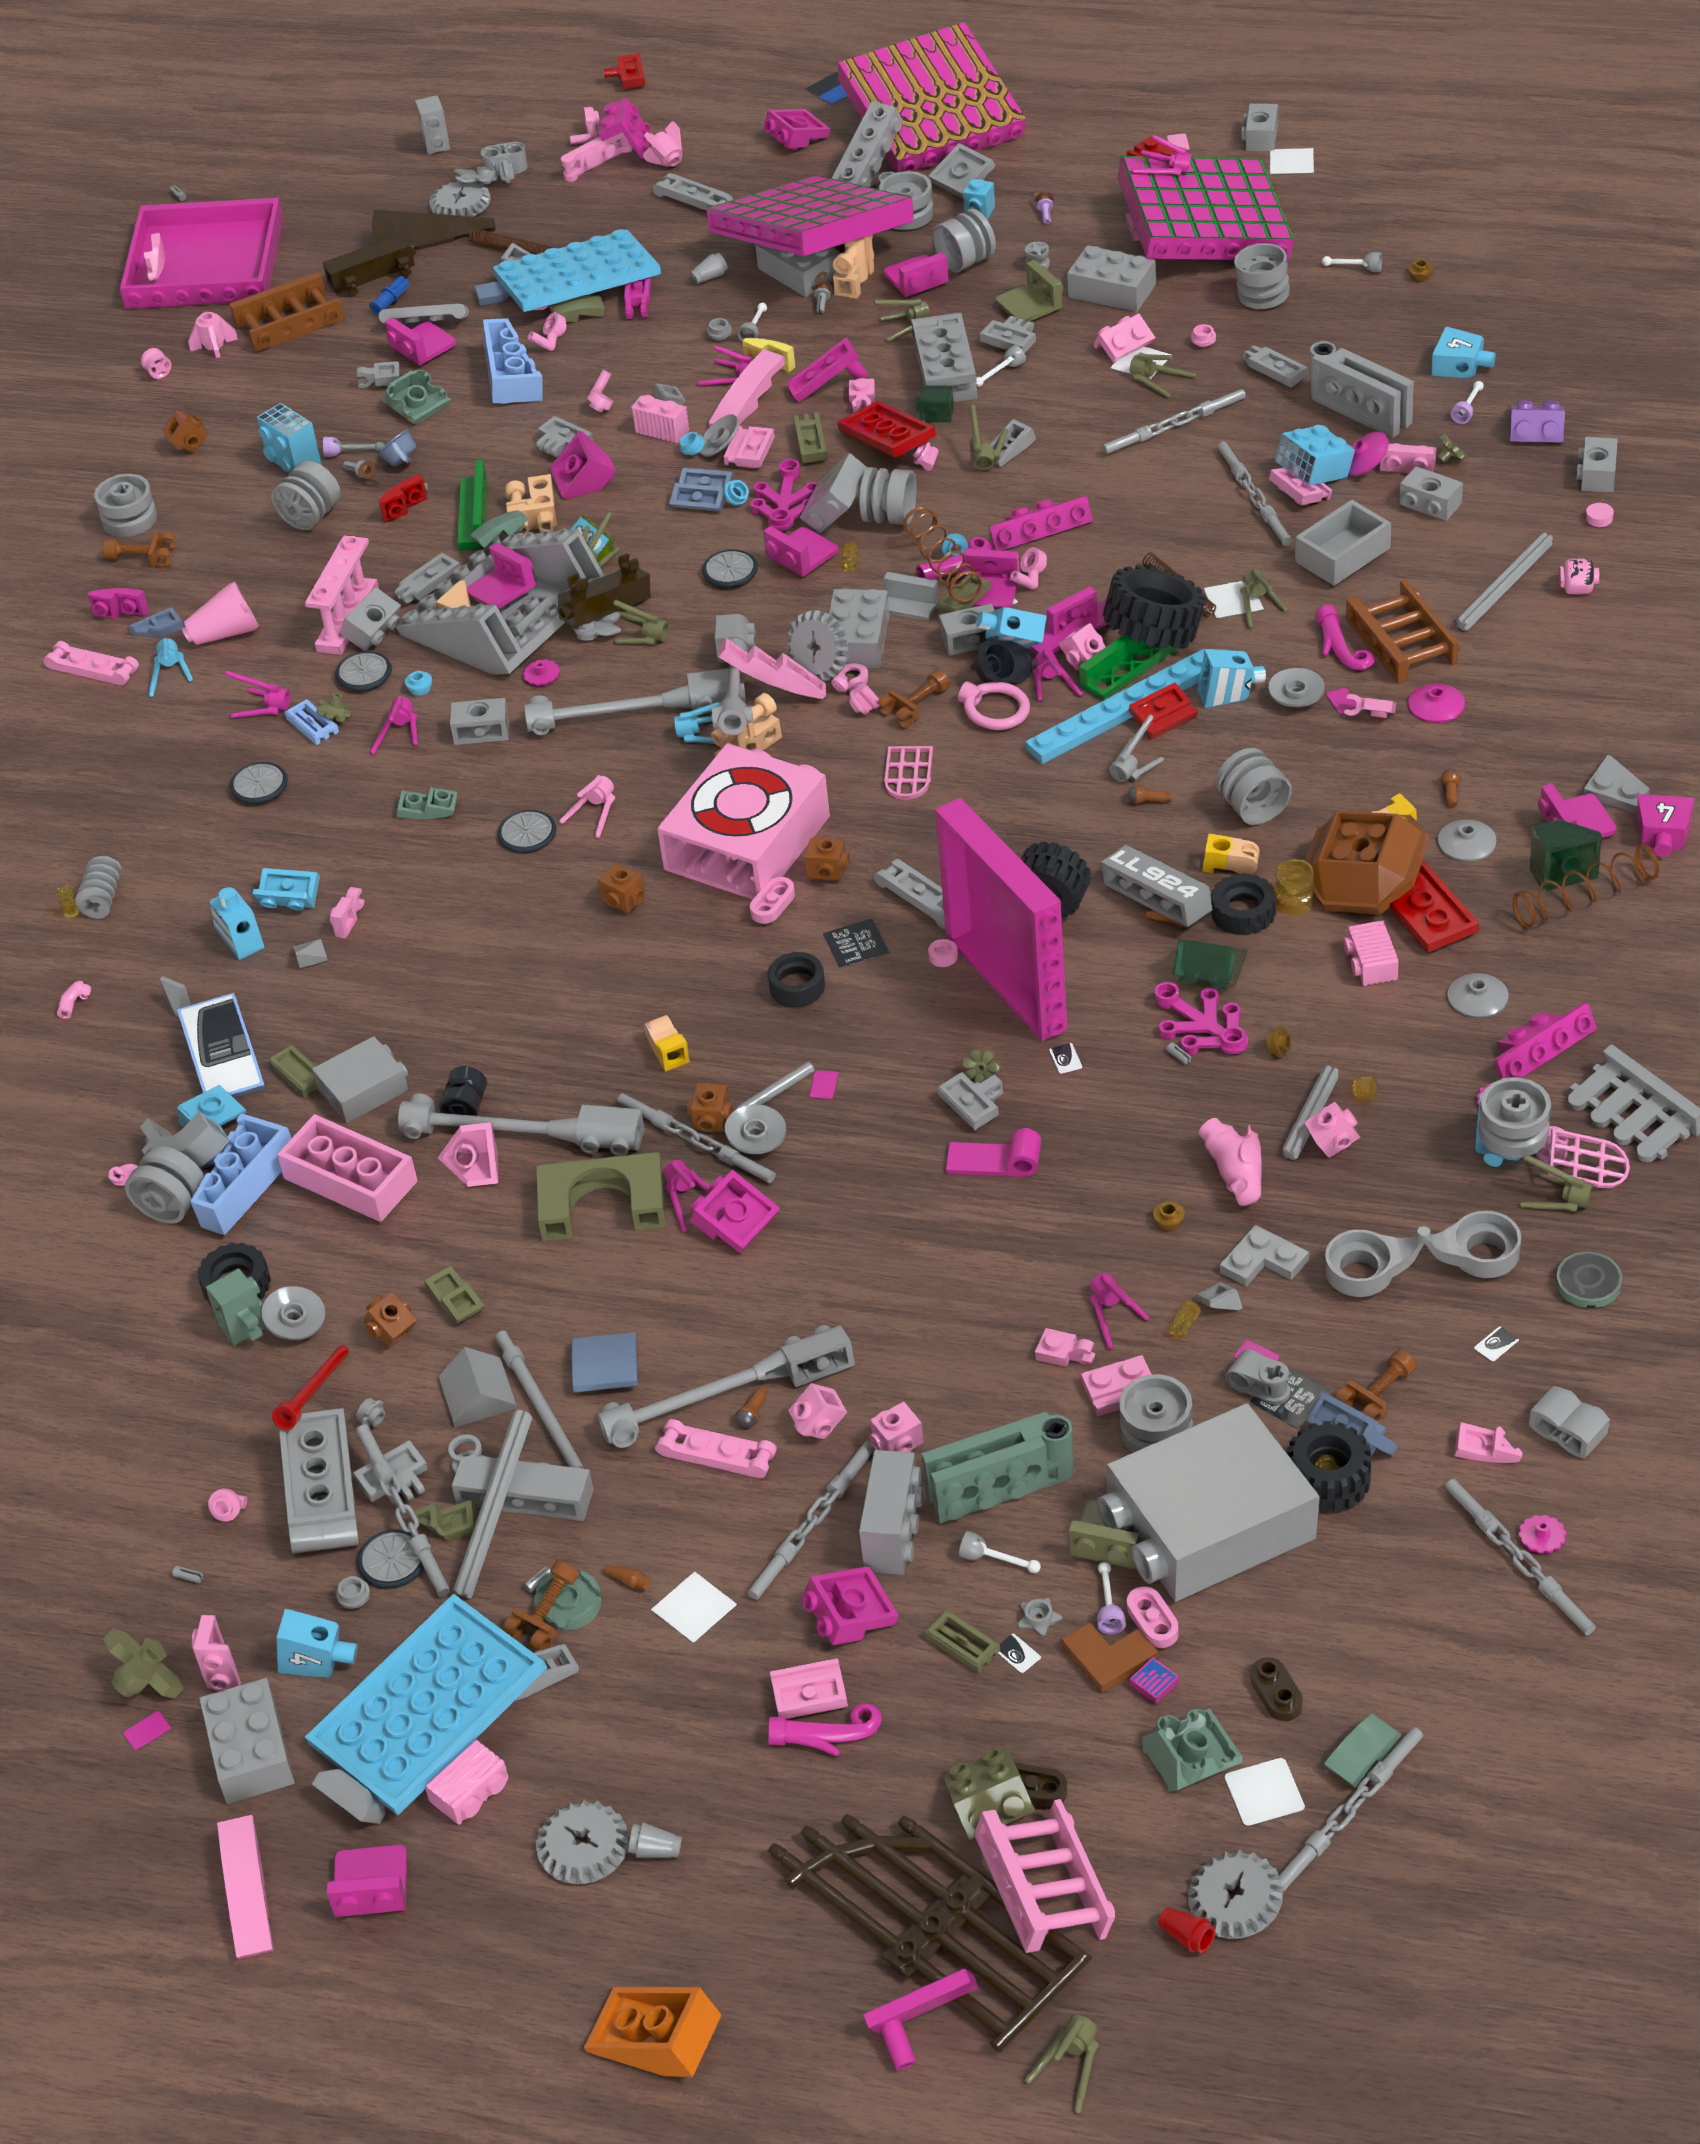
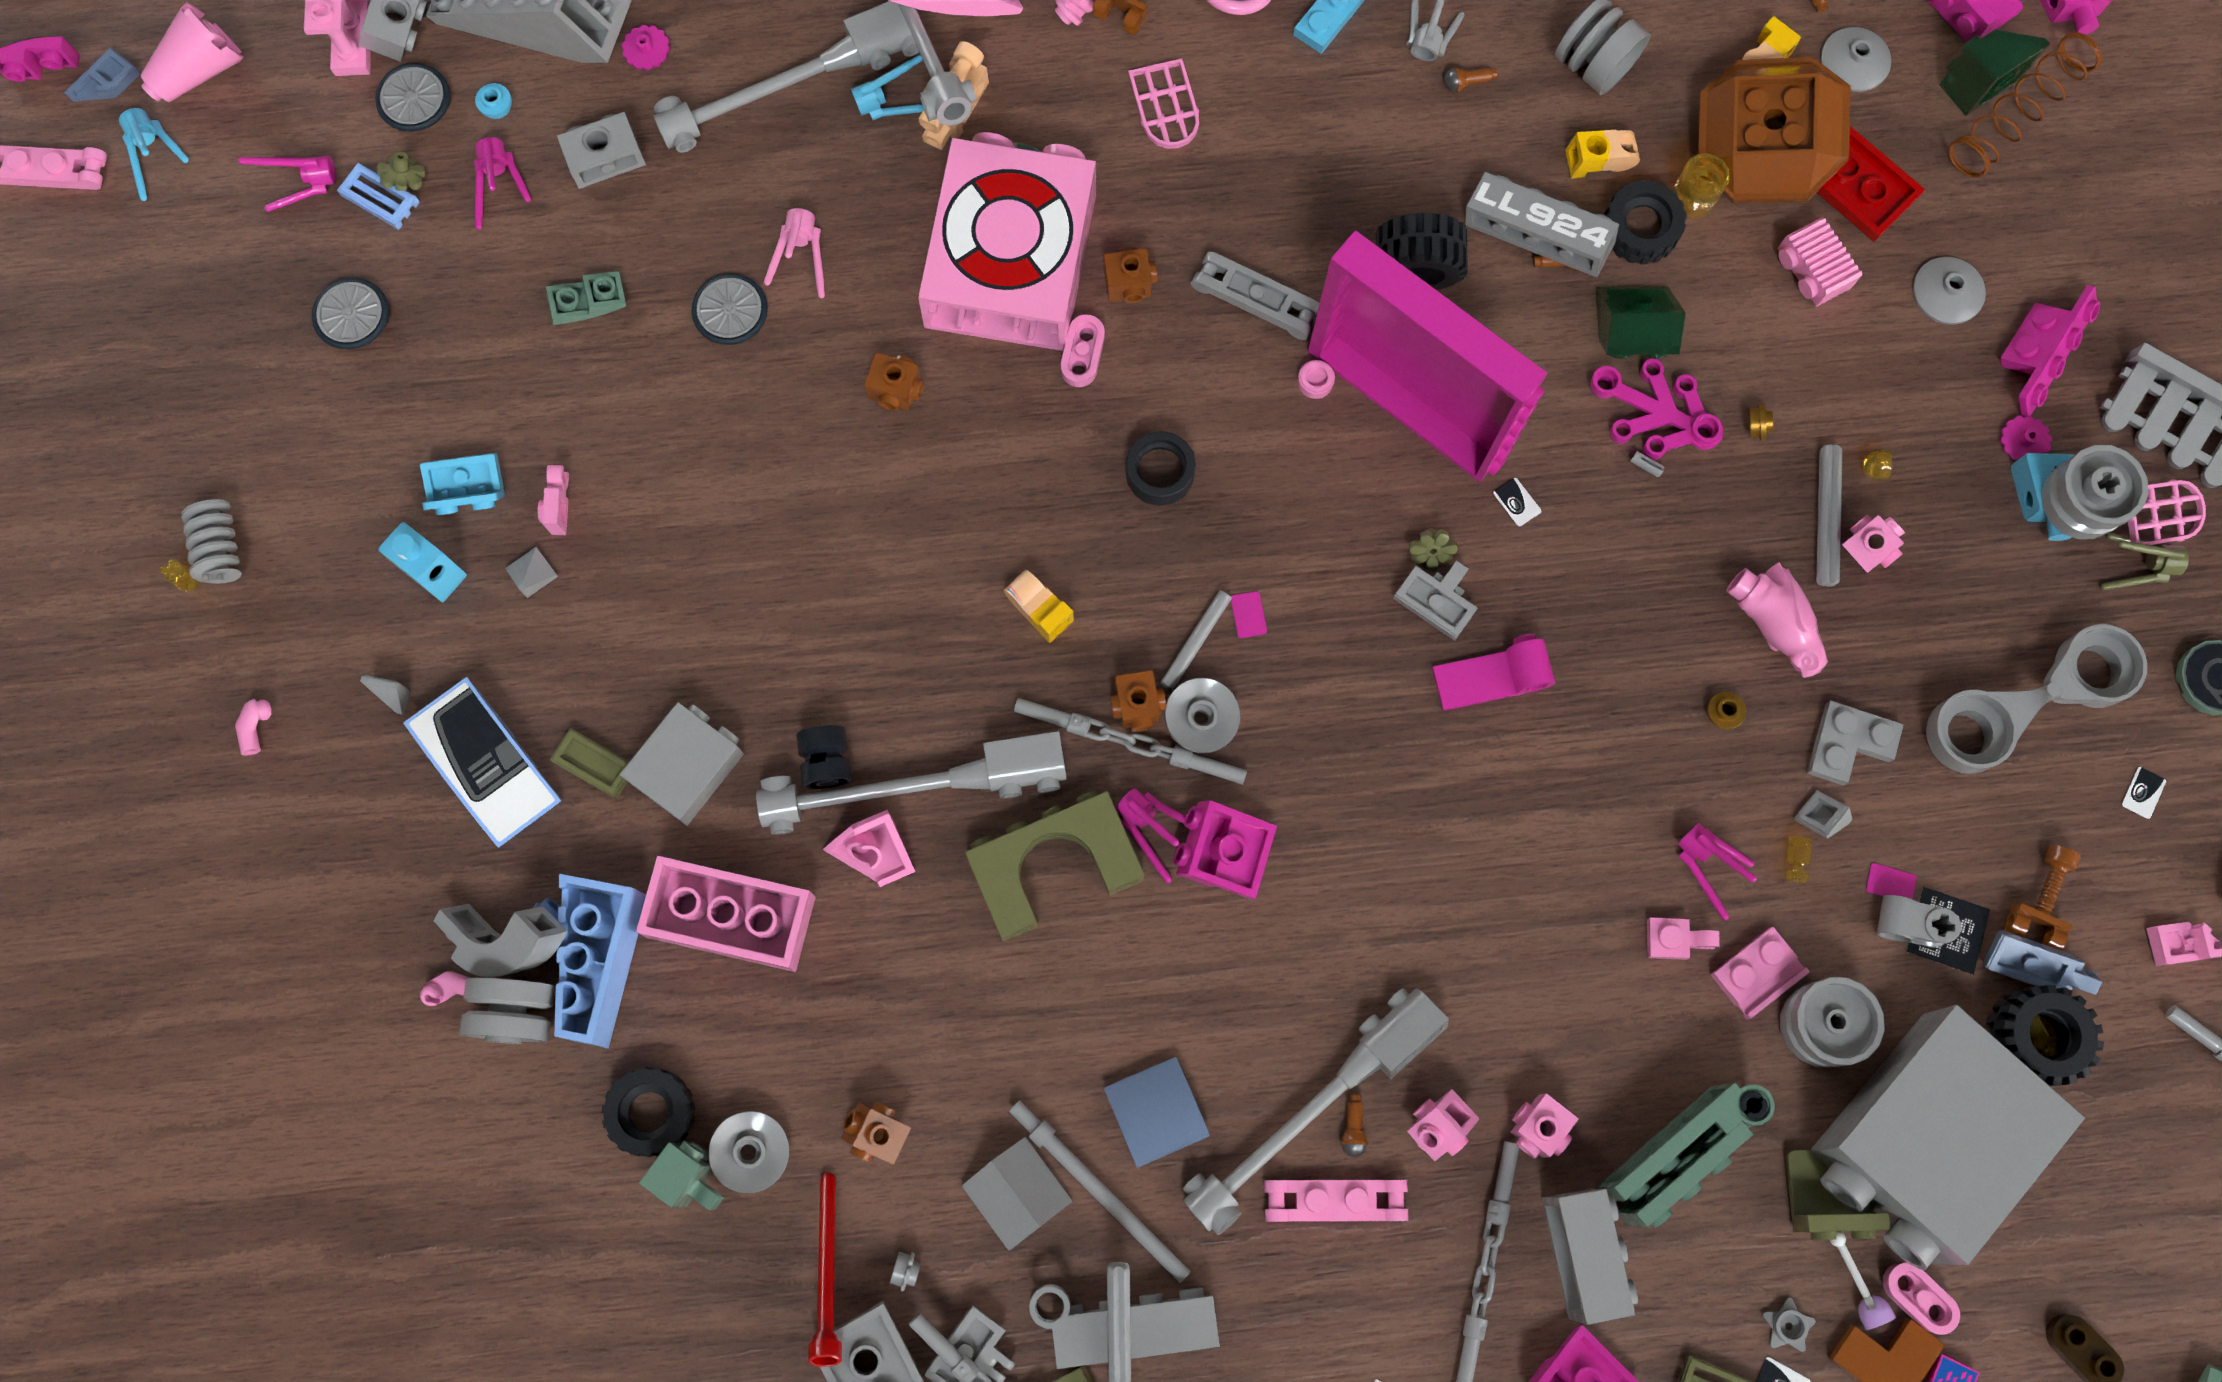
camera: 25 degrees left, 30 degrees up
(214, 1104) = (512, 866): medium azure piece -> none
(453, 1295) = (933, 1061): olive slope -> none
(856, 943) = (1203, 386): black sticker -> none
(975, 1547) = (1686, 1258): hinge -> none

